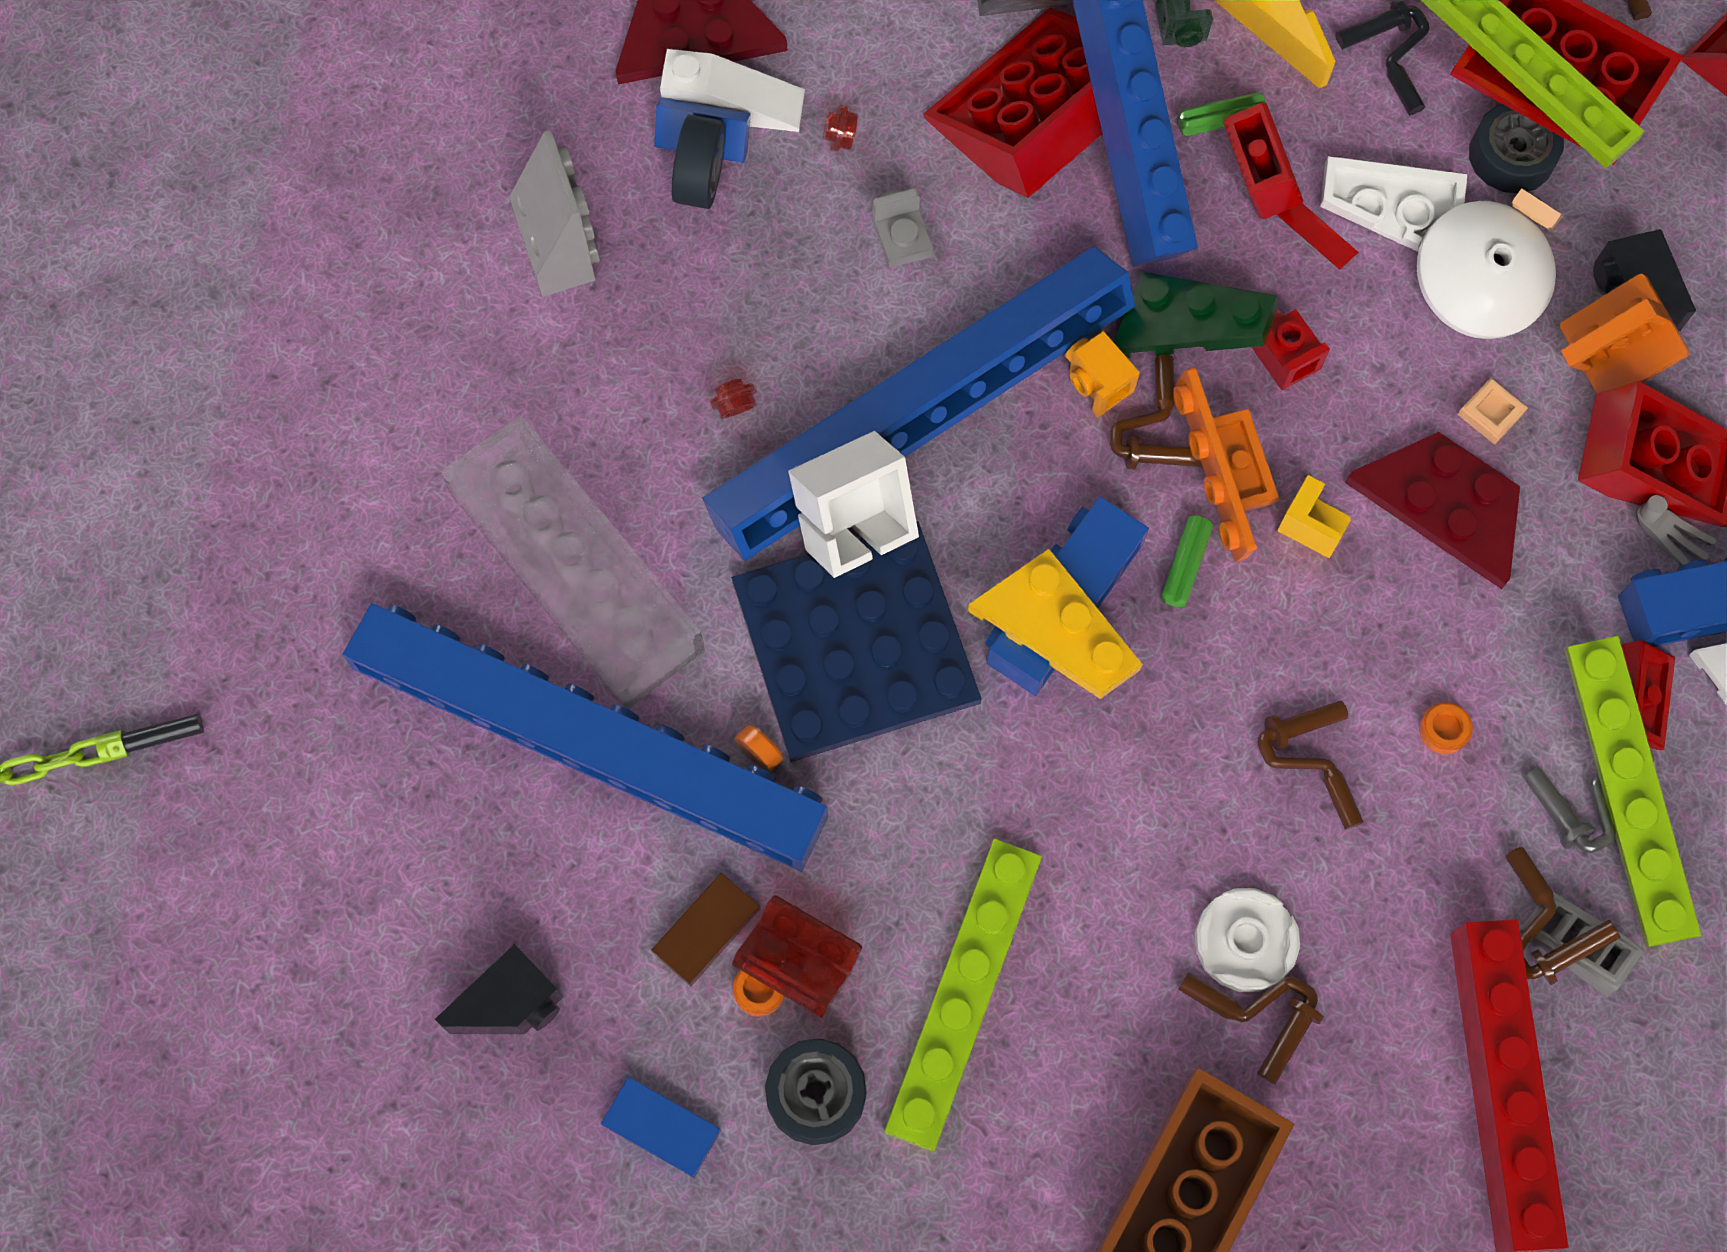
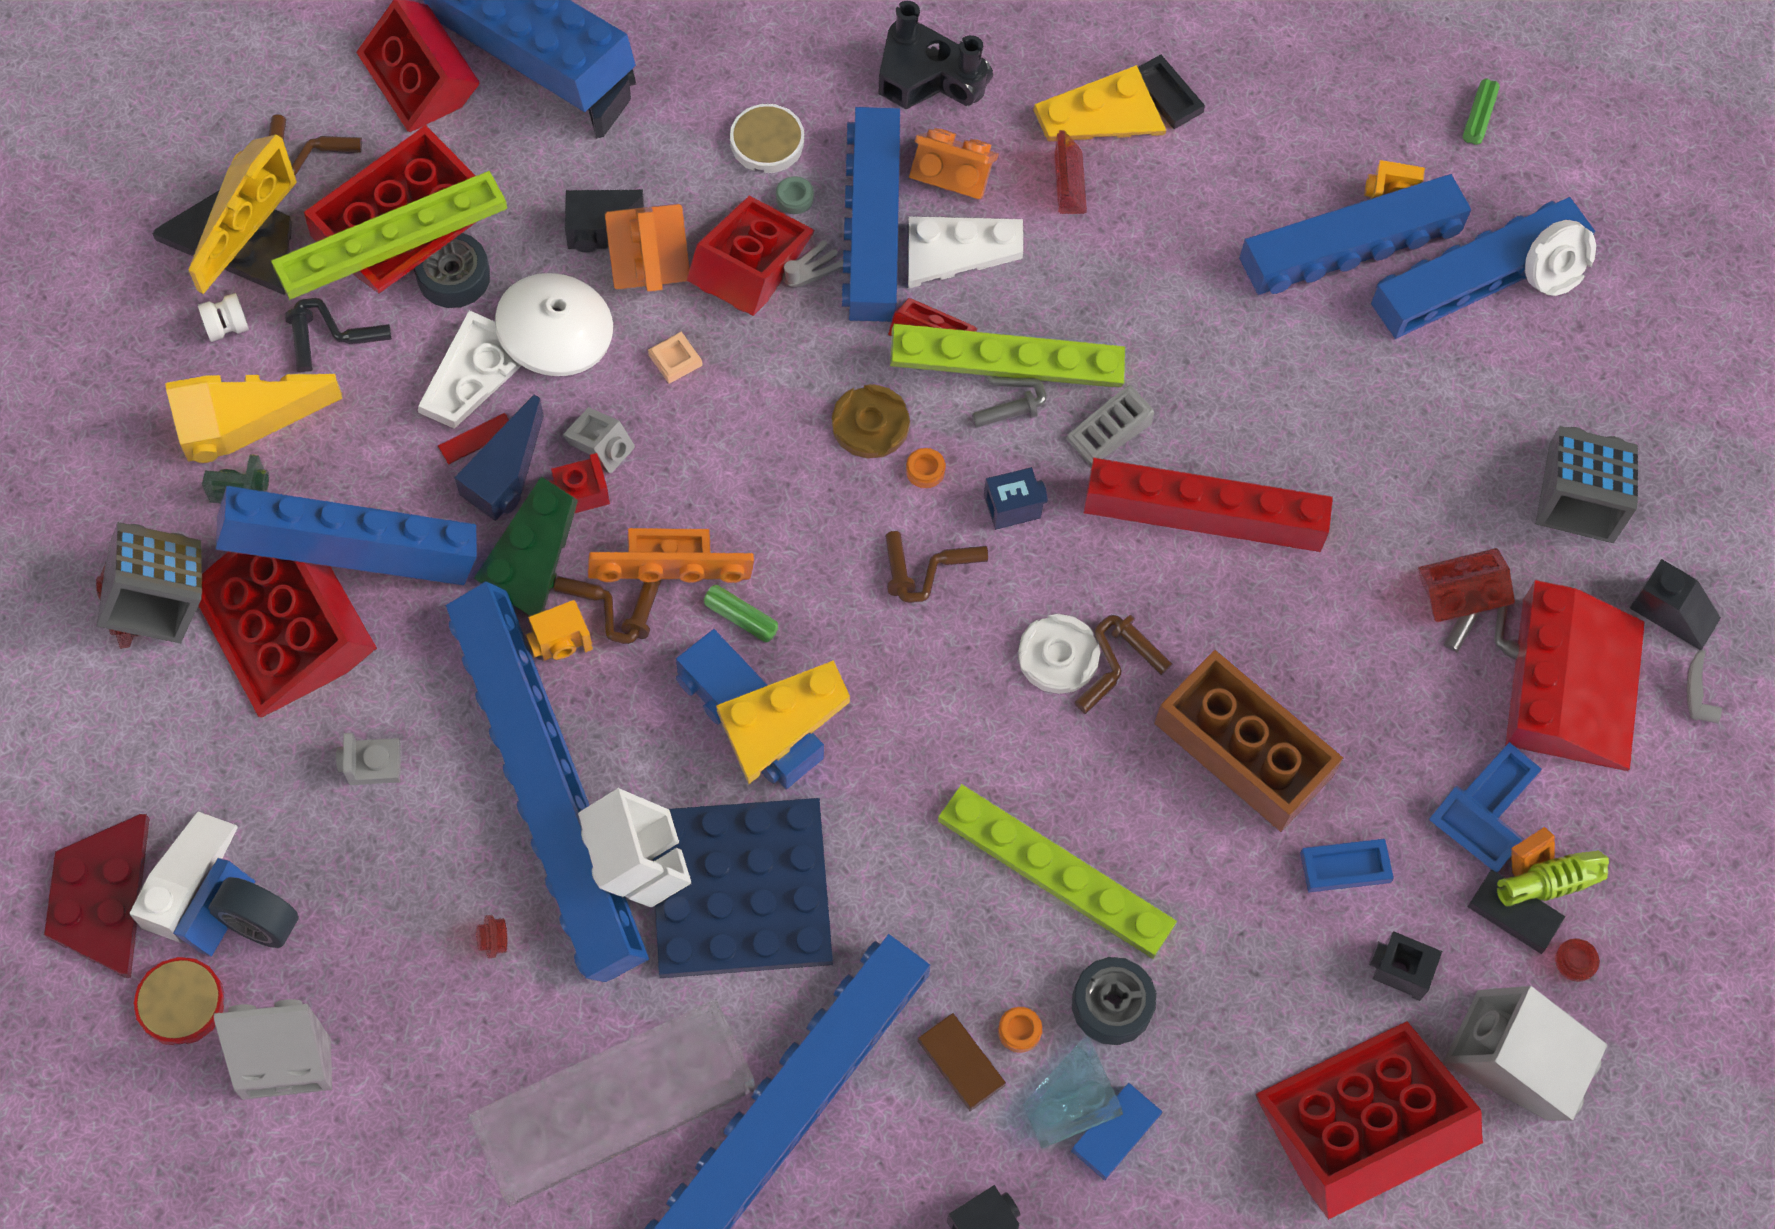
camera: 80 degrees left, 5 degrees down
(601, 131) = (178, 1001): none -> pearl gold tile
(689, 1065) = (1072, 1097): none -> clear light blue wing
(759, 748) = (819, 983): orange tile -> none
(798, 956) = (1003, 989): clear red bracket -> none
(840, 128) = (253, 787): clear red plate -> none
(1212, 115) = (344, 472): bright green axle -> none
(1263, 161) = (407, 454): red brick -> none
(1291, 263) = (499, 470): none -> dark blue slope
(1314, 521) = (733, 510): yellow panel -> none
(1355, 356) = (601, 435): none -> light grey bracket
(1437, 840) = (1014, 498): none -> dark blue brick
(1449, 501) = (742, 410): dark red wing -> none
(1477, 664) = (871, 434): none -> pearl gold tile
(1536, 210) = (515, 272): light nougat tile -> none
(1542, 894) = (1120, 432): reddish brown piece -> none

